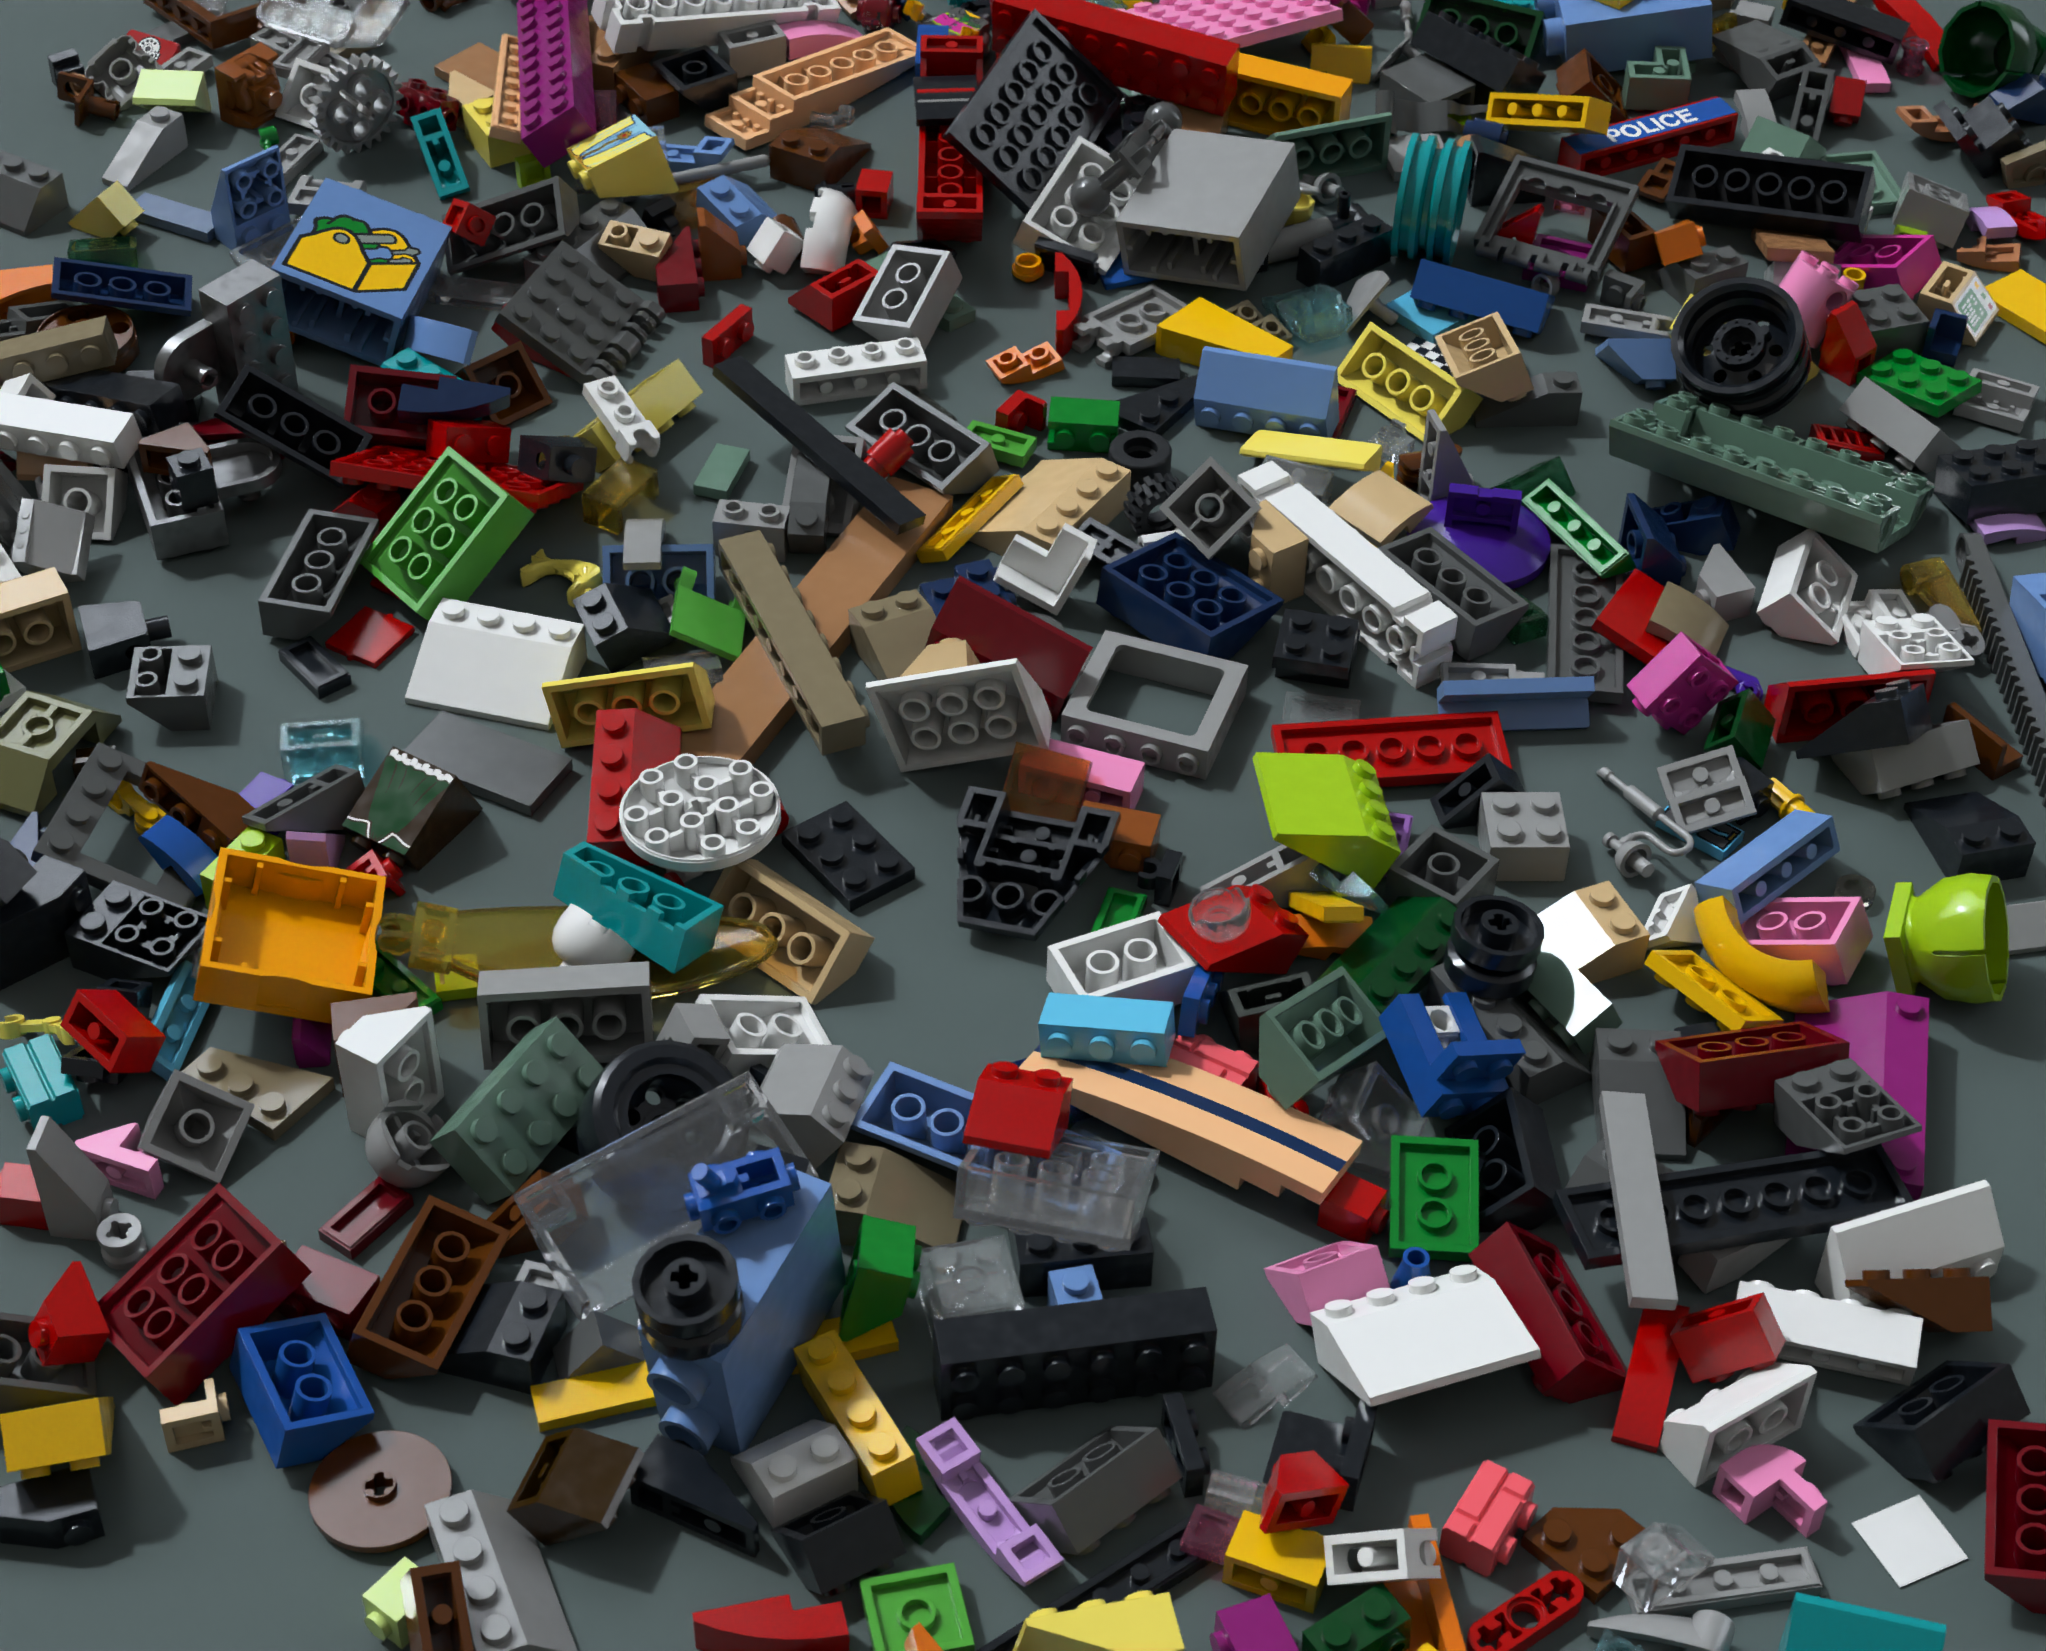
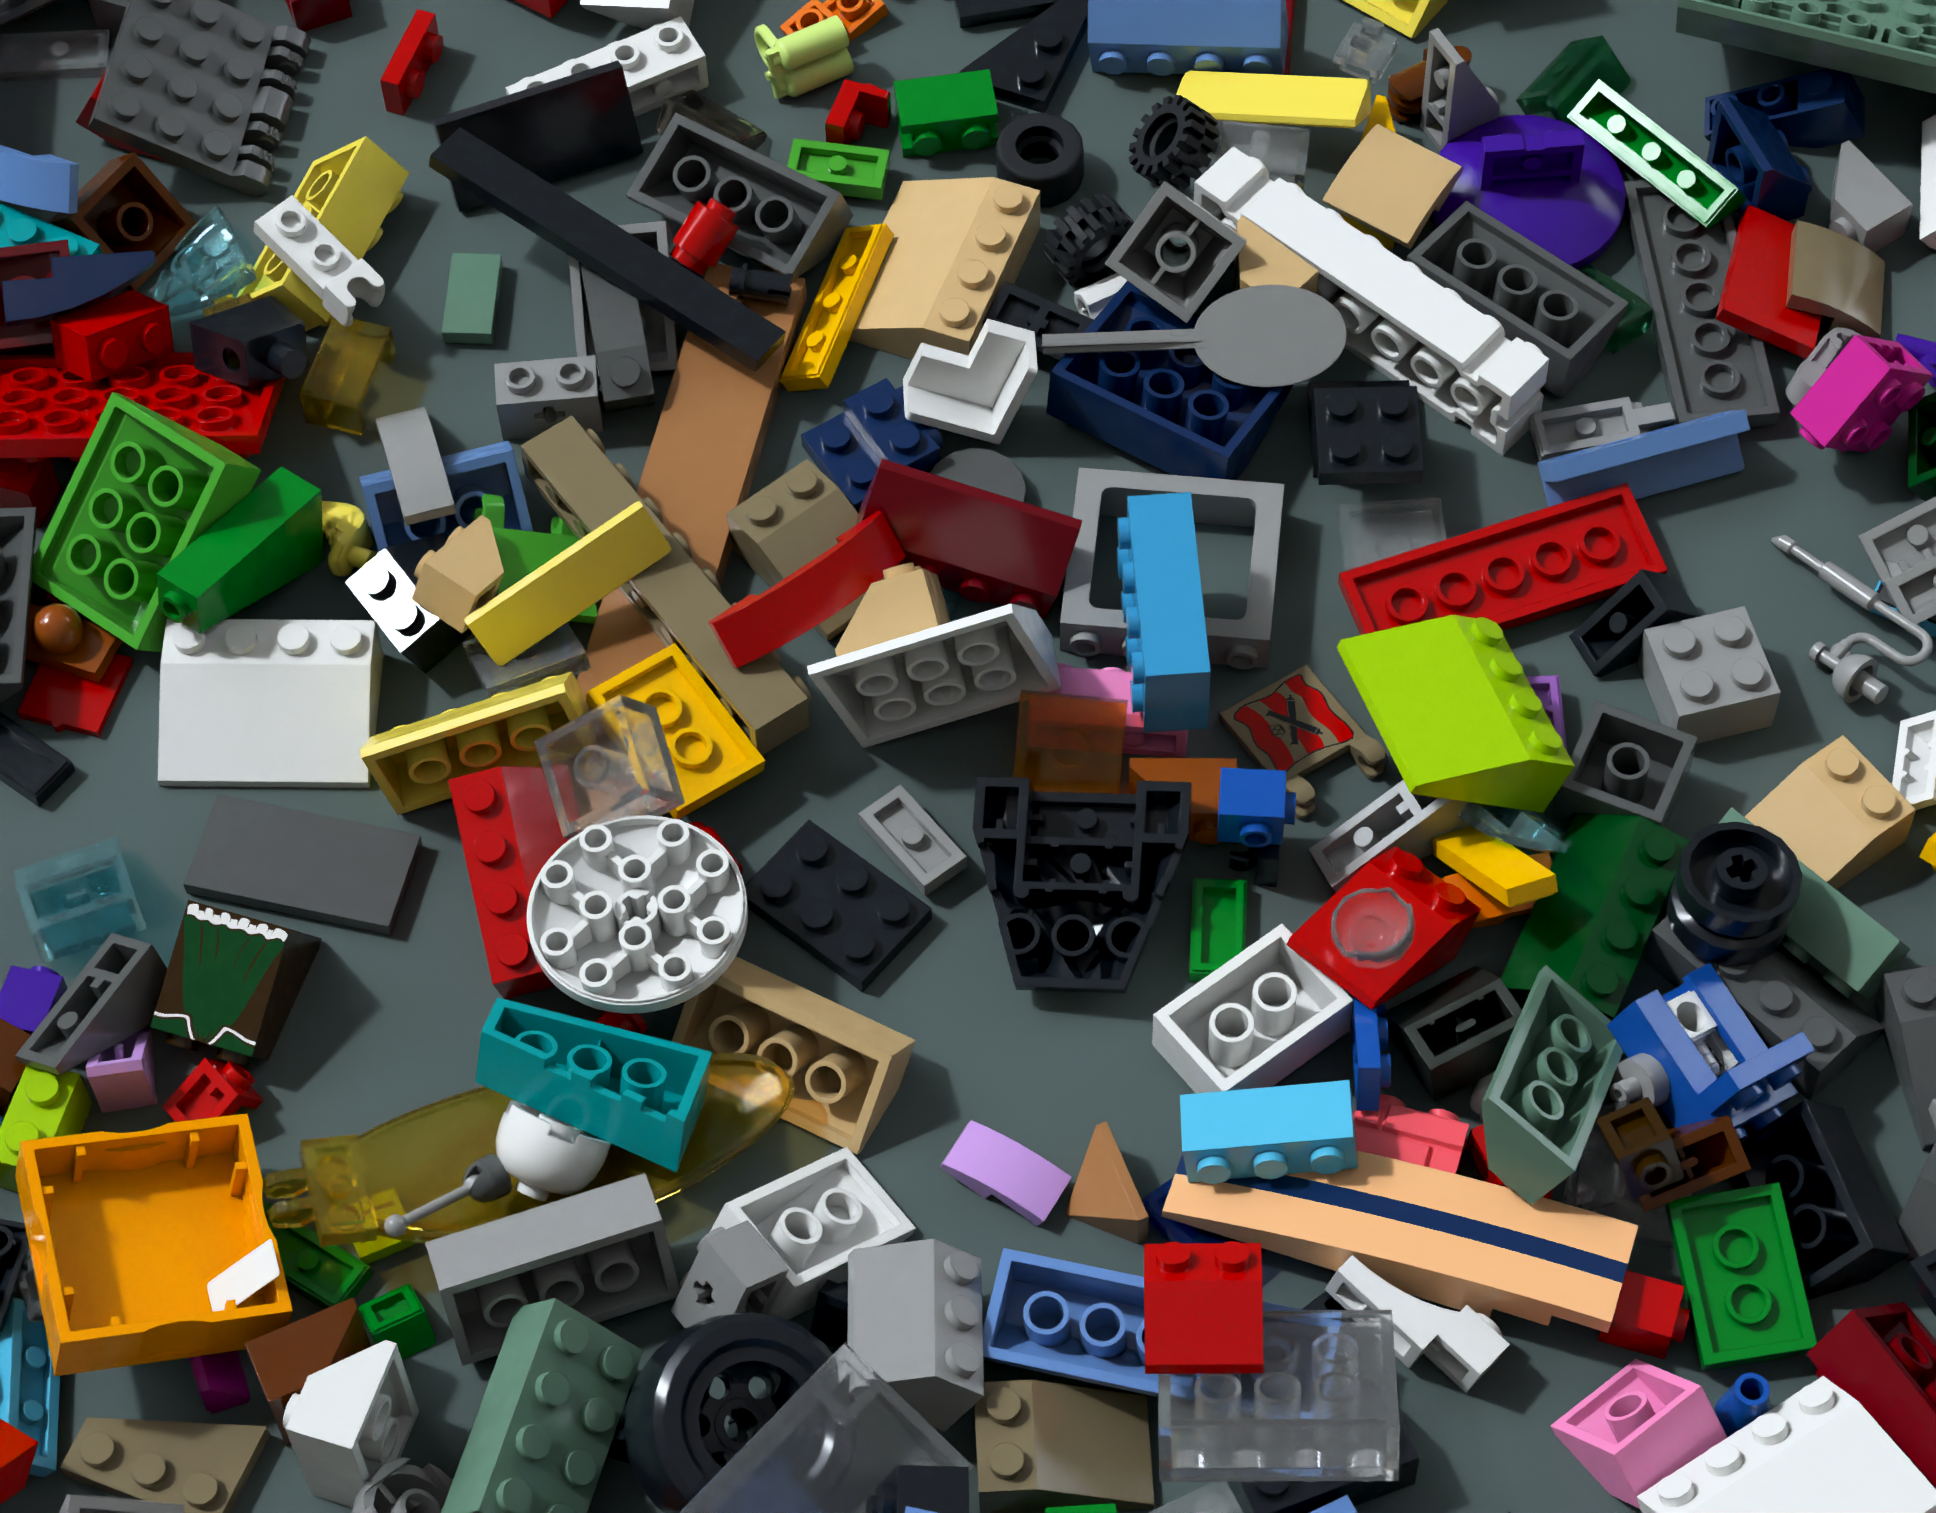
camera: 10 degrees left, 15 degrees up
(351, 967) = (244, 1277): none -> white sticker
(369, 604) = (68, 643): none -> dark orange tile
(453, 1039) = (399, 1319): none -> green slope
(510, 567) = (246, 553): none -> green slope
(535, 955) = (483, 1181): none -> hinge
(551, 418) = (206, 267): none -> clear light blue brick
(649, 605) = (460, 574): none -> tan slope
(712, 721) = (609, 766): none -> clear brick
(721, 619) = (568, 584): none -> light yellow slope
(768, 724) = (702, 736): none -> yellow plate
(820, 380) = (553, 126): none -> black tile
(879, 649) = (809, 594): none -> red slope
(915, 826) = (912, 840): none -> light grey plate
(915, 1031) = (1007, 1170): none -> lavender slope
(919, 489) = (760, 285): none -> black pin
(979, 1050) = (1106, 1192): none -> medium nougat slope
(996, 376) = (805, 57): none -> yellowish green piece
(1132, 710) = (1164, 612): none -> dark azure brick
(1161, 837) = (1254, 806): none -> blue brick
(1179, 1180) = (1455, 1341): none -> white slope
(1214, 816) = (1298, 729): none -> flag
(1240, 454) = (1174, 142): none -> black tyre
(1245, 569) = (1246, 337): none -> light grey piece
(1377, 1087) = (1641, 1147): none -> dark brown bracket
(1393, 1055) = (1640, 1078): none -> light grey tile
(1410, 1109) = (1707, 1154): none -> reddish brown slope

